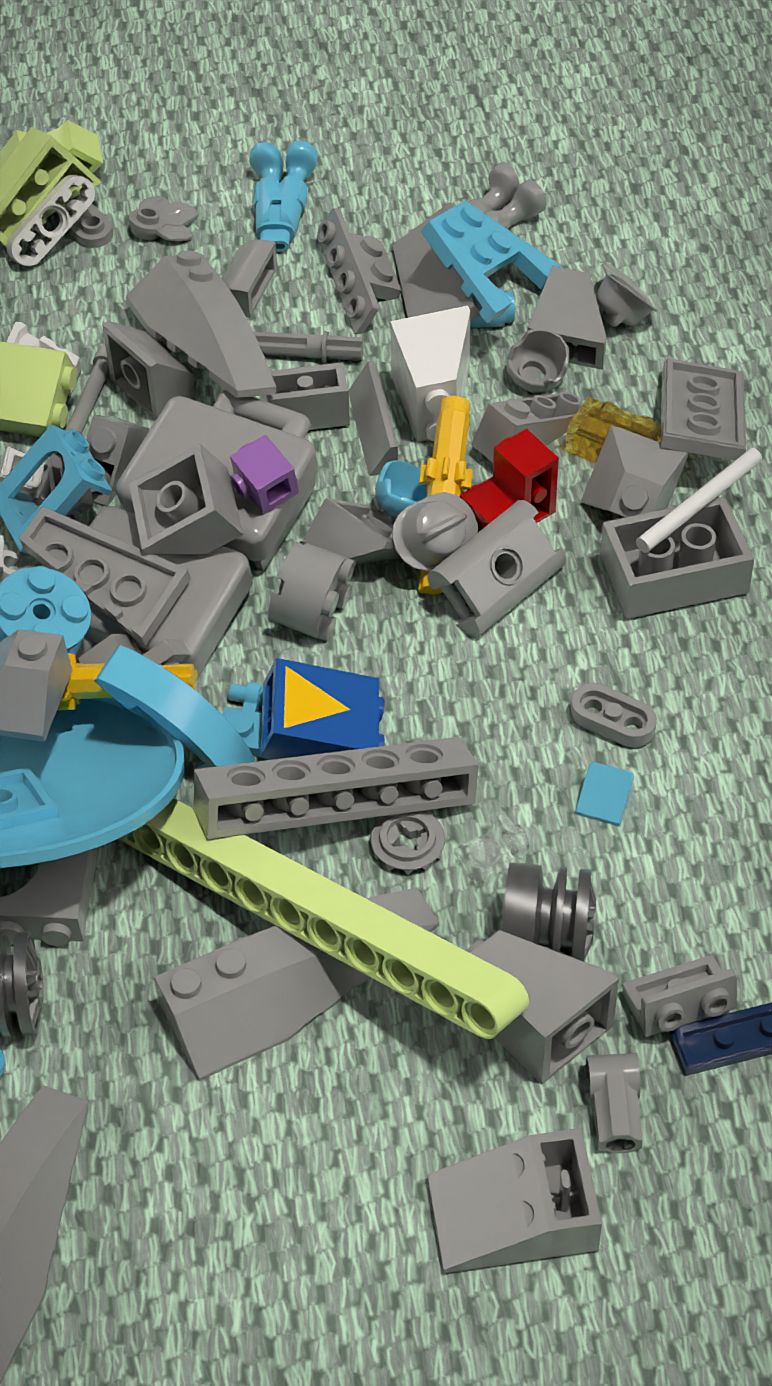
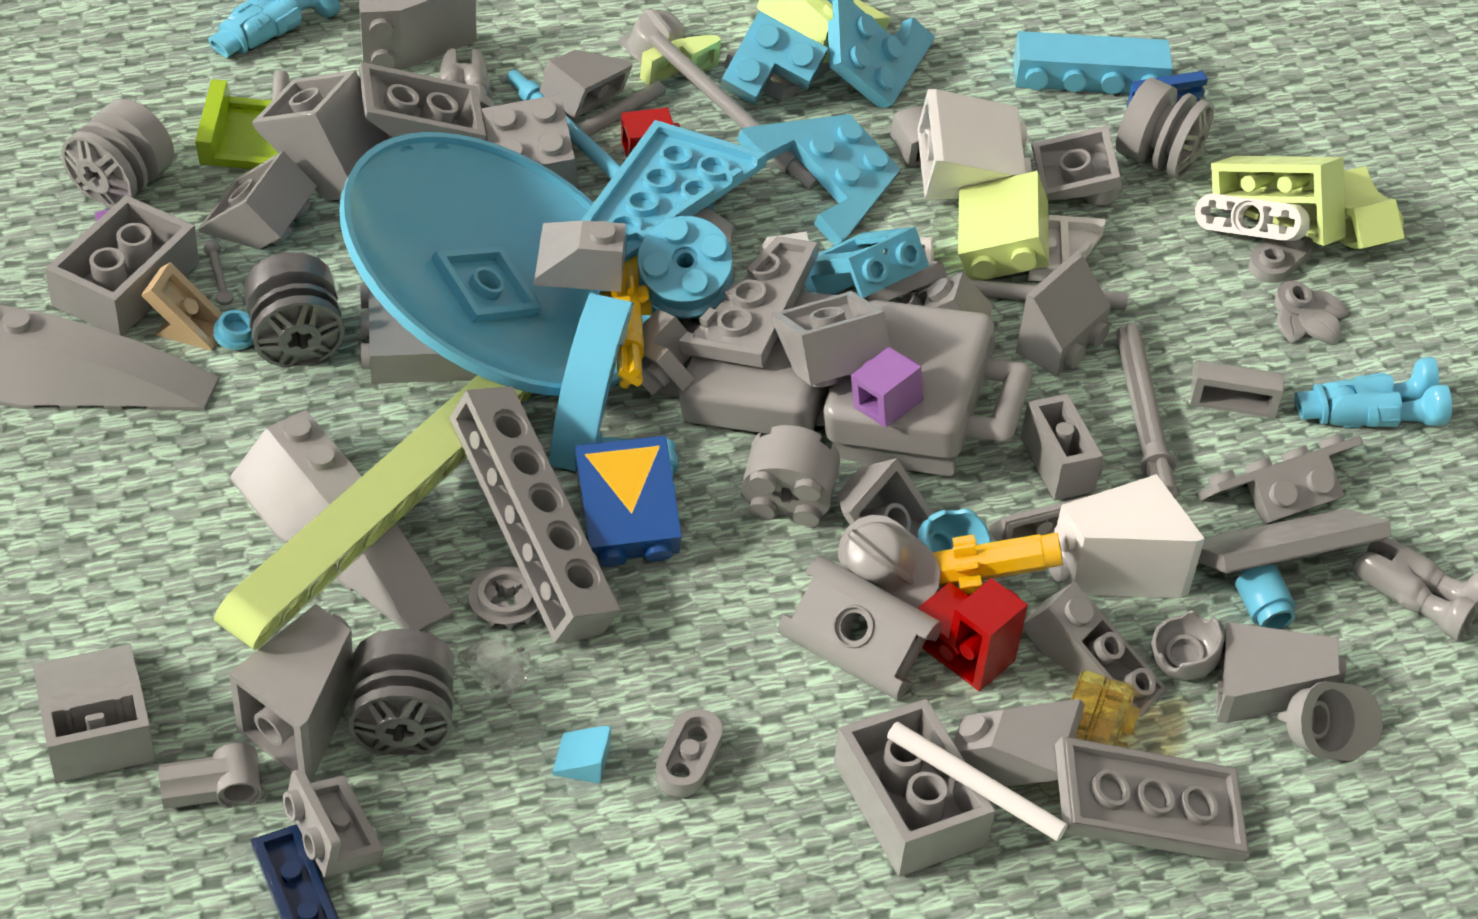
camera: 75 degrees right, 5 degrees down
(201, 317) = (1125, 344): light grey wedge -> none
(479, 248) = (1324, 547): medium azure wing -> none

